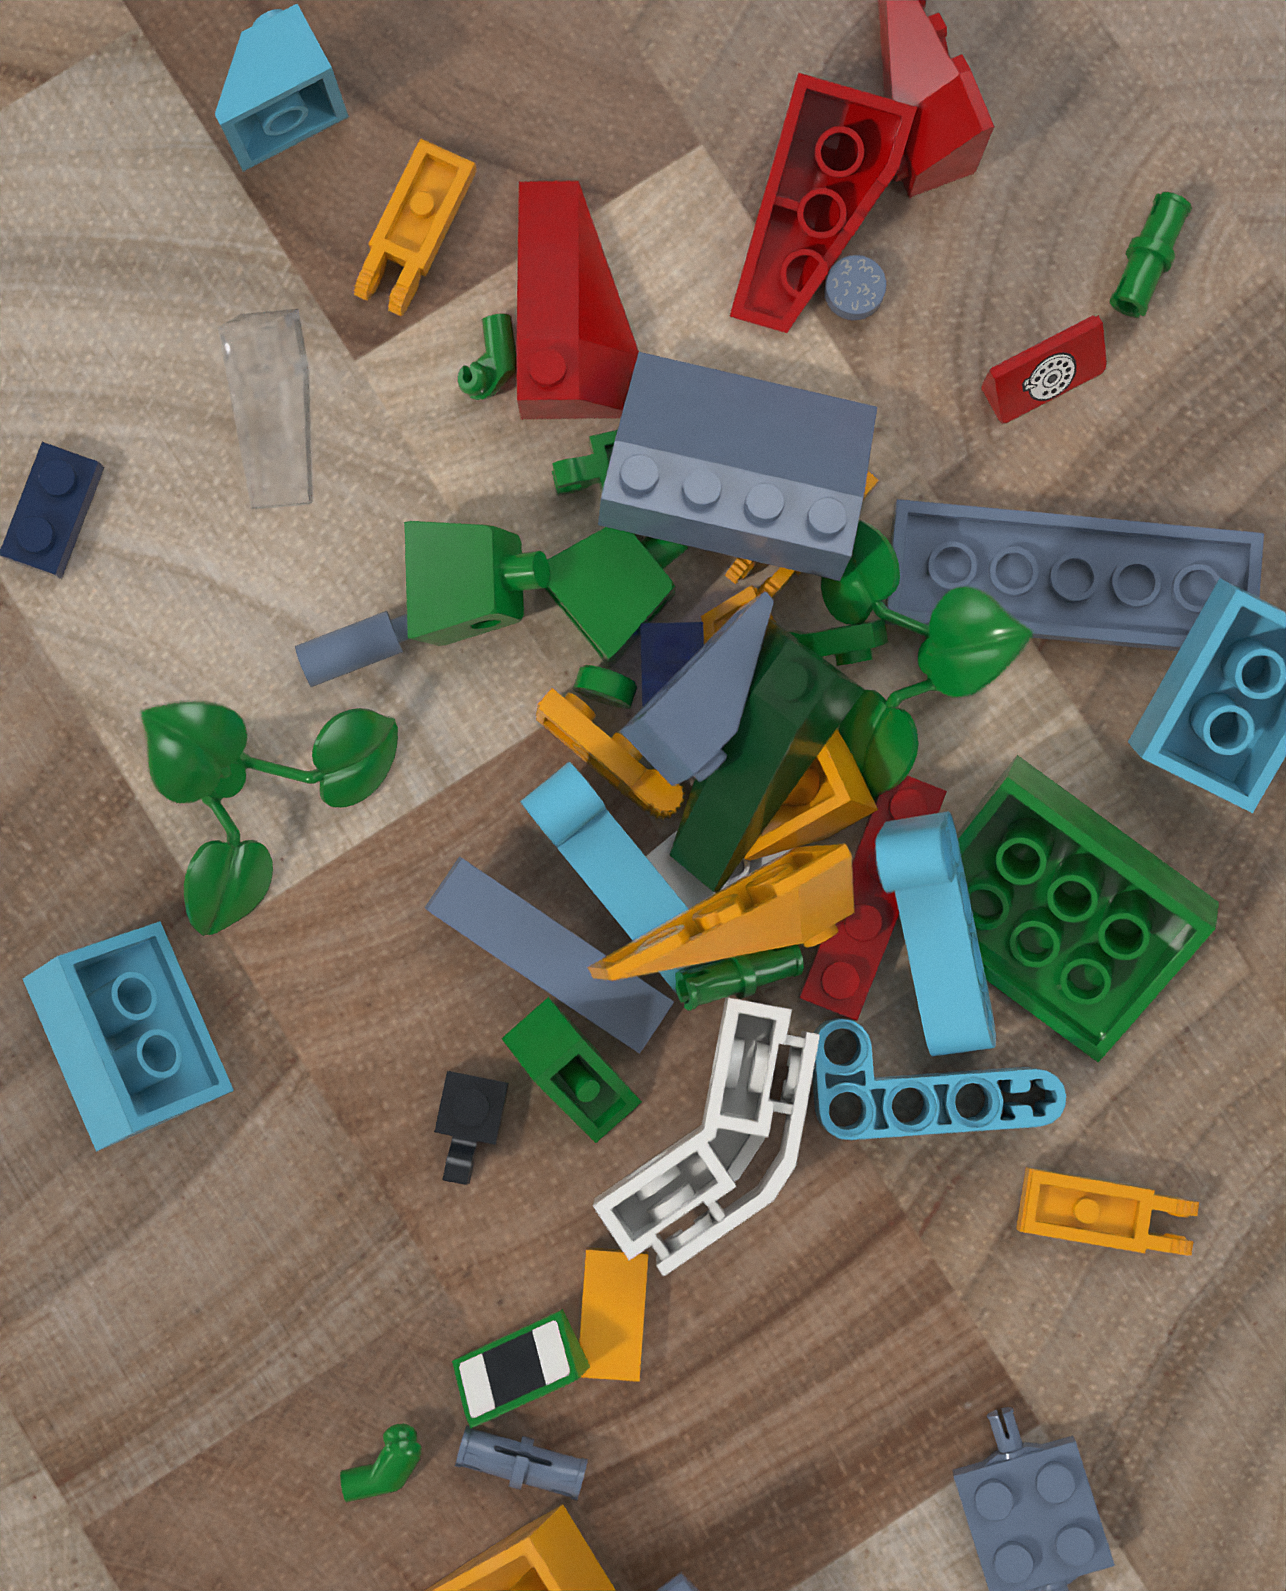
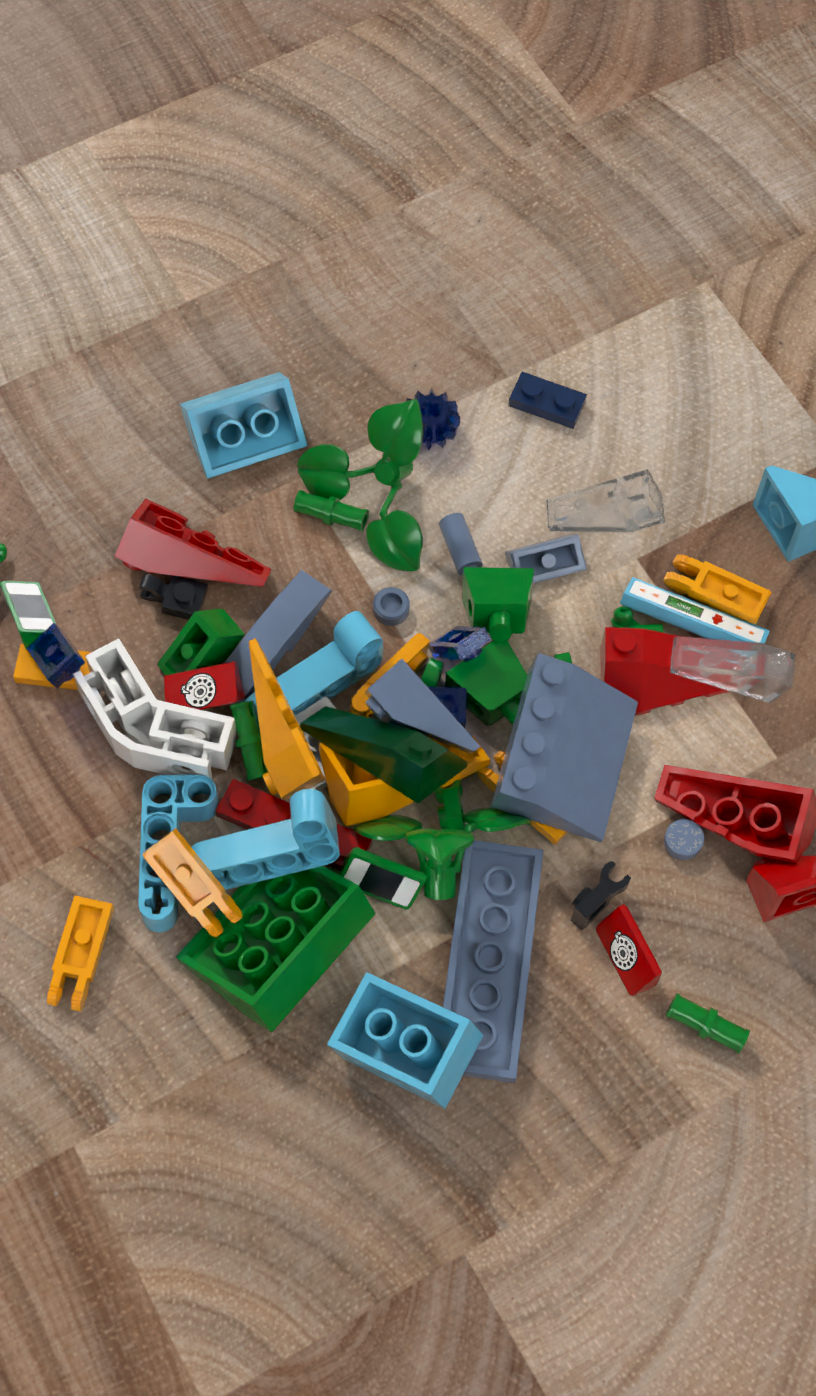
camera: 90 degrees right, 20 degrees down
(86, 704) = (438, 418): none -> clear blue gear
(294, 871) = (331, 510): none -> green pin
(363, 506) = (549, 558): none -> sand blue slope
(384, 1133) = (163, 544): none -> red wedge
(468, 760) = (391, 606): none -> sand blue tile
(470, 263) = (689, 614): none -> tile
(552, 639) = (460, 643): none -> clear blue plate
(567, 197) = (735, 666): none -> clear slope
(621, 1311) = (56, 655): none -> clear blue plate
(656, 1058) = (205, 686): none -> red slope
(960, 755) = (383, 878): none -> slope
(975, 422) = (592, 902): none -> black plate
(1009, 1044) = (191, 881): none -> light orange hinge

